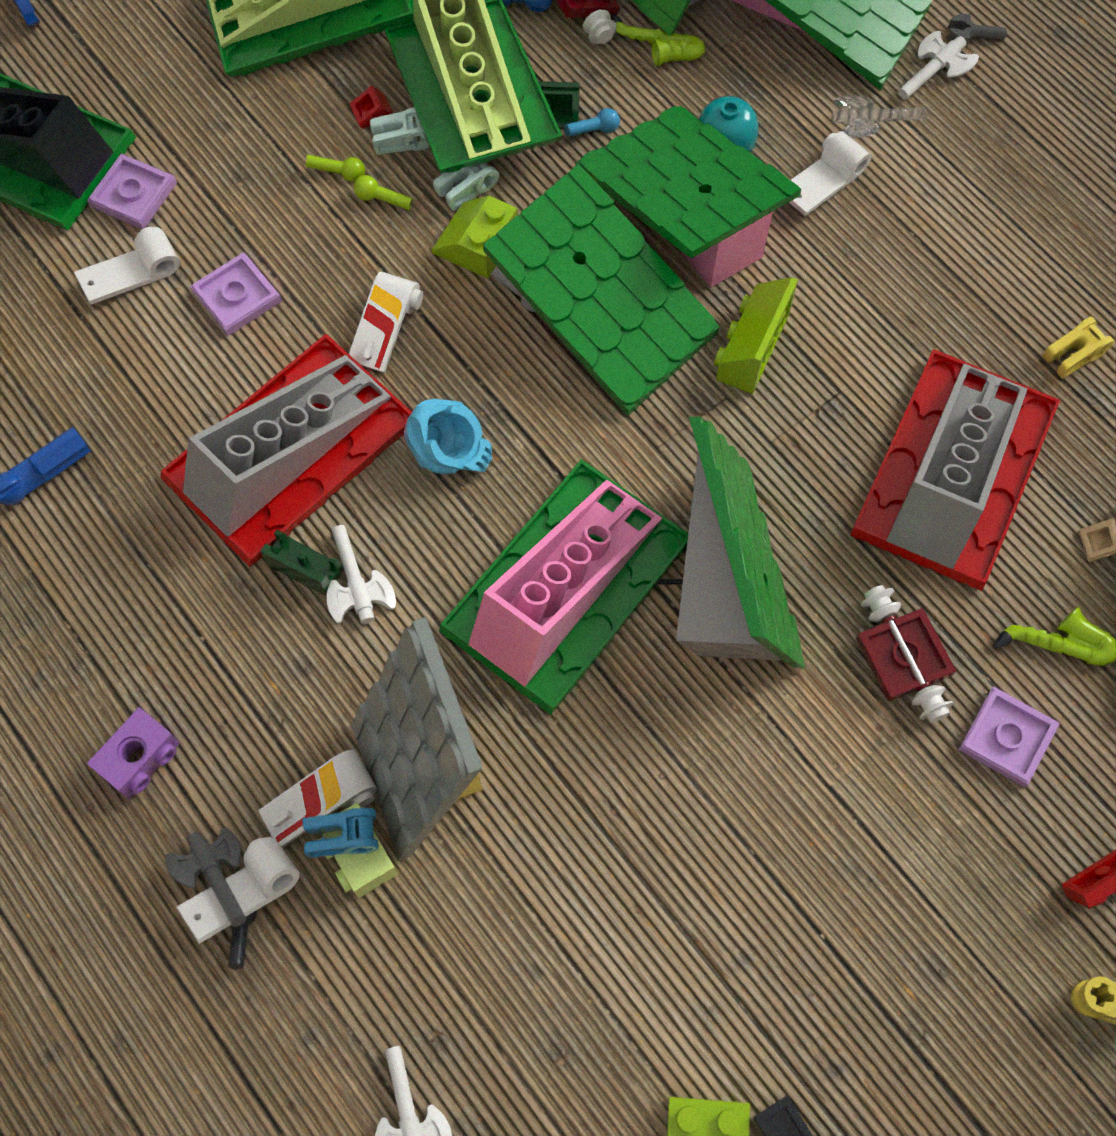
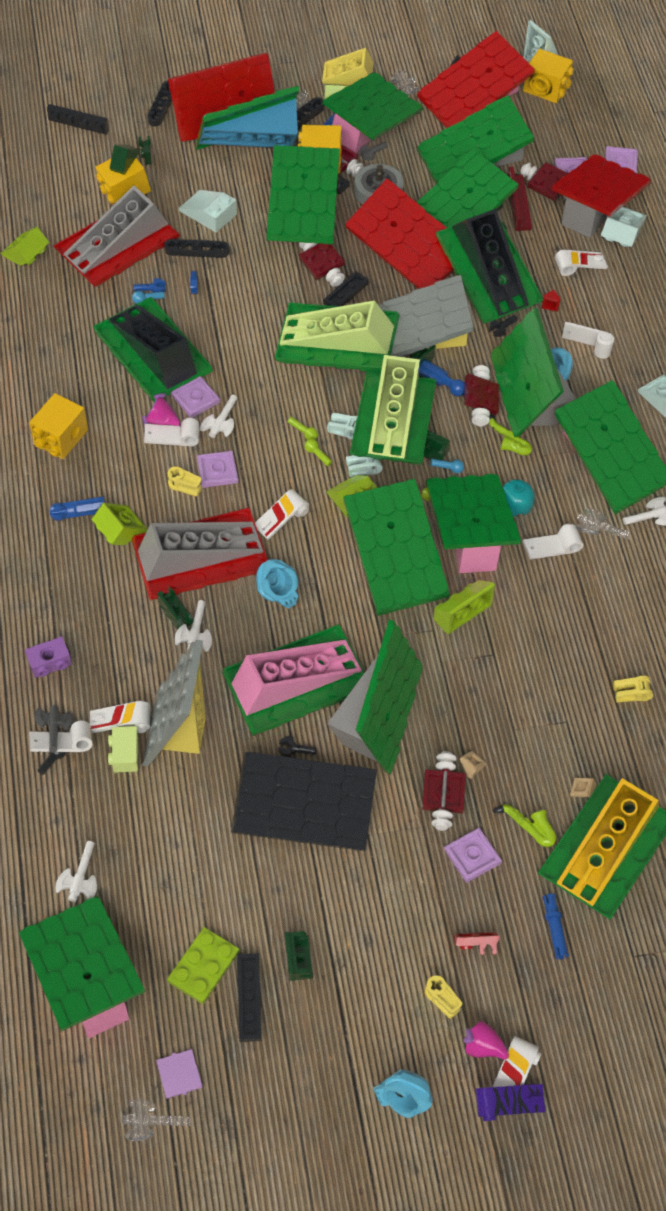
camera: 25 degrees right, 10 degrees down
(91, 242) = (161, 413): none -> dark pink hat
(124, 461) = (118, 523): none -> lime slope
(195, 340) = (184, 482): none -> light yellow piece
(196, 217) = (220, 424): none -> white piece
(355, 838) = (125, 735): dark azure piece -> none
(370, 105) = (338, 405): red slope -> none
(631, 701) = (293, 747): none -> black bar
(703, 788) = (304, 801): none -> black piece
(850, 1063) = (298, 956): none -> dark green hinge
(918, 585) = (472, 763): none -> tan slope
(956, 469) = (529, 718): piece -> none

